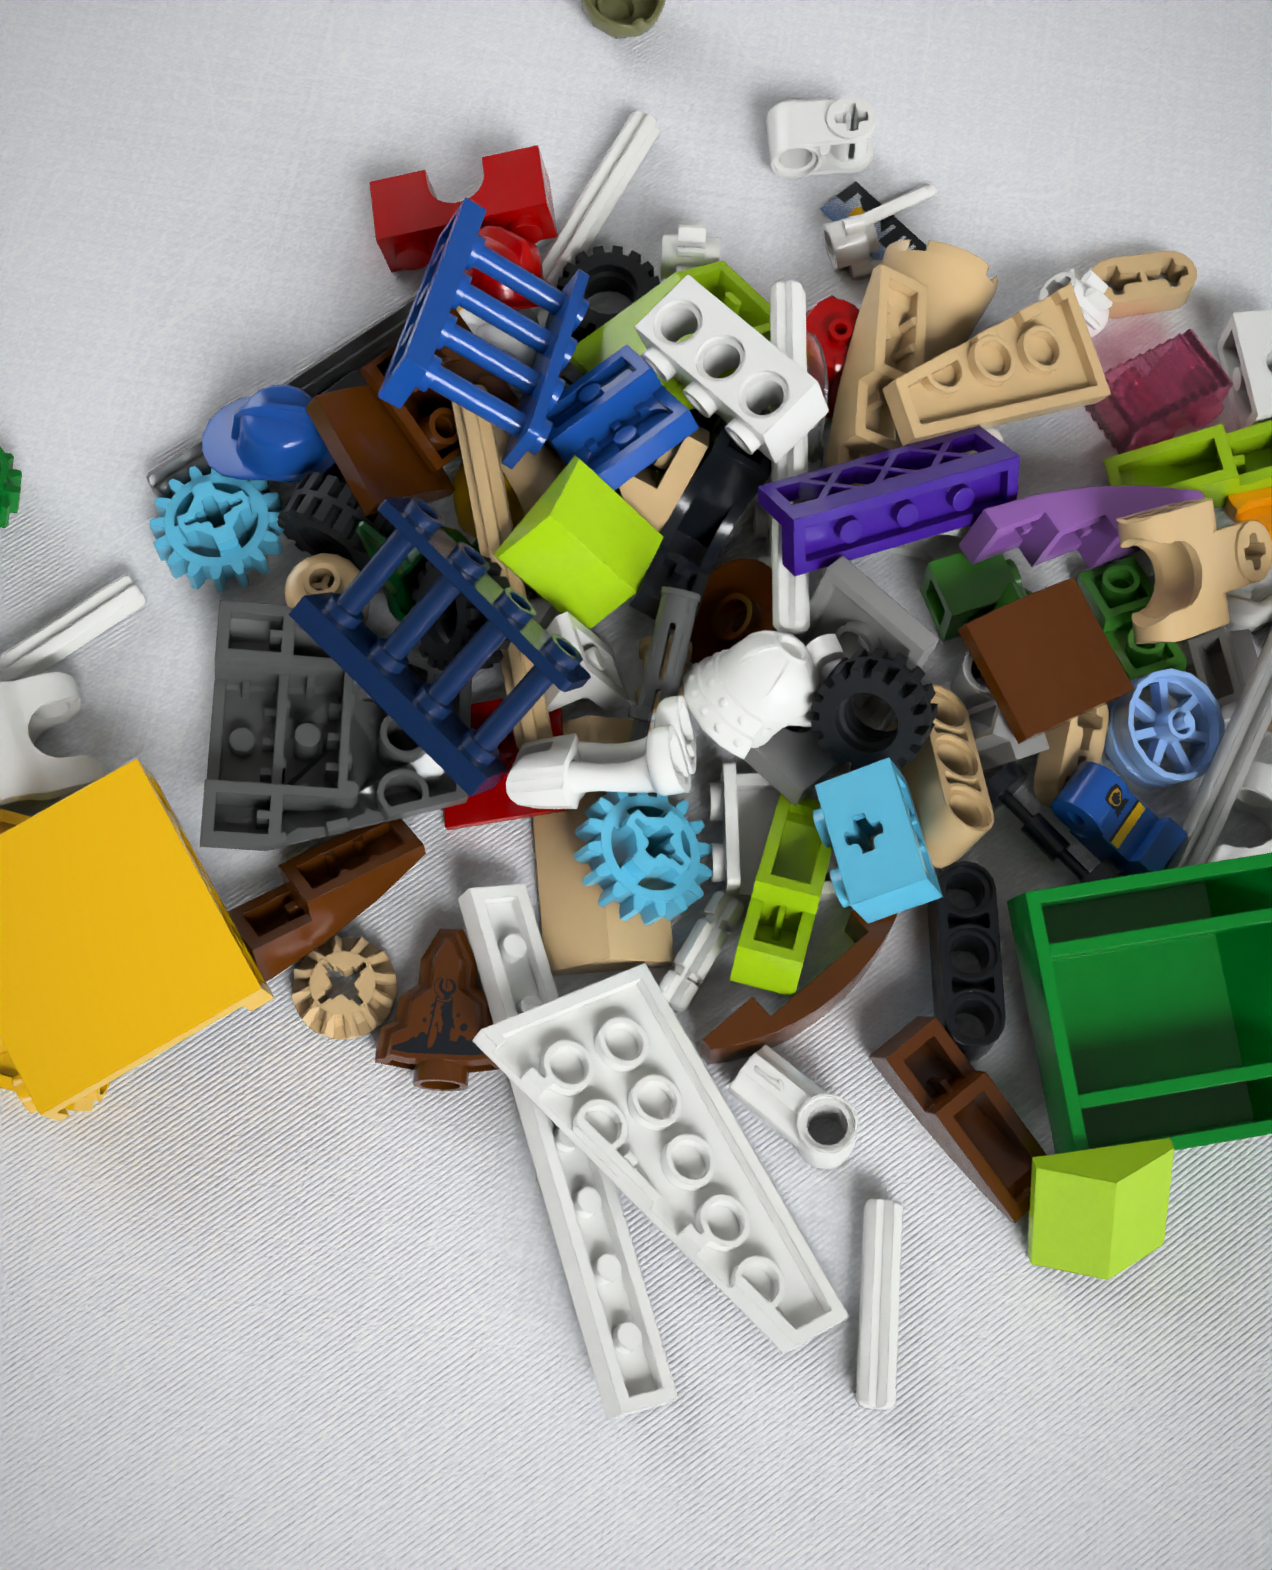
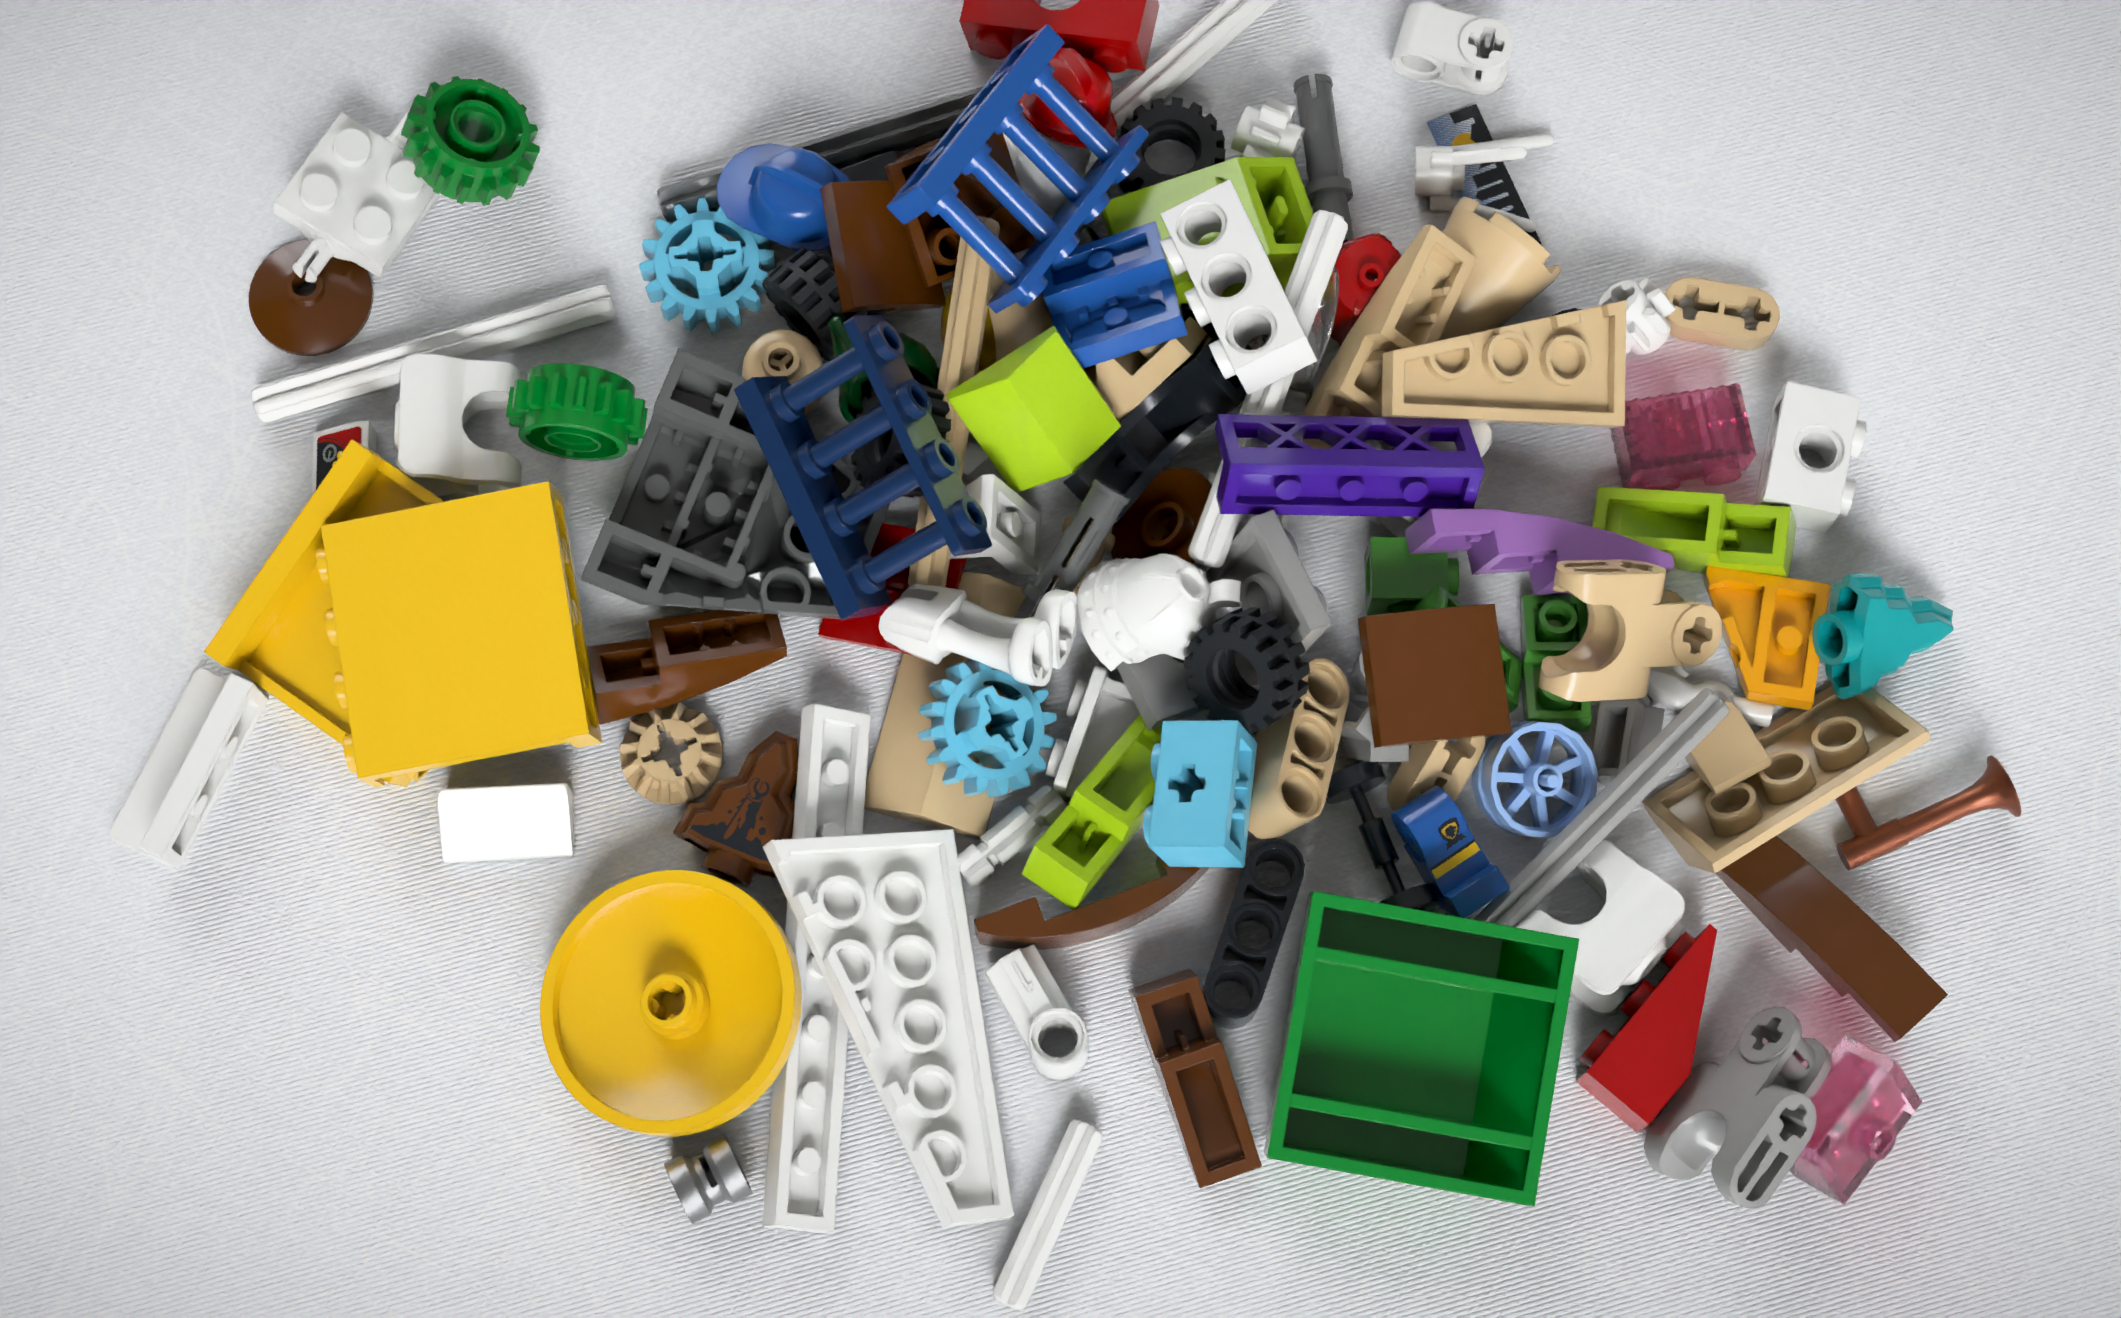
camera: 20 degrees right, 5 degrees up
(140, 693) = (576, 412): none -> green gear
(204, 1110) = (506, 822): none -> white slope
(434, 1230) = (670, 1003): none -> yellow dish
(534, 1391) = (708, 1178): none -> flat silver wheel
(736, 244) = (1327, 185): none -> dark grey pin
(1099, 1207) = (1278, 1202): lime slope -> none

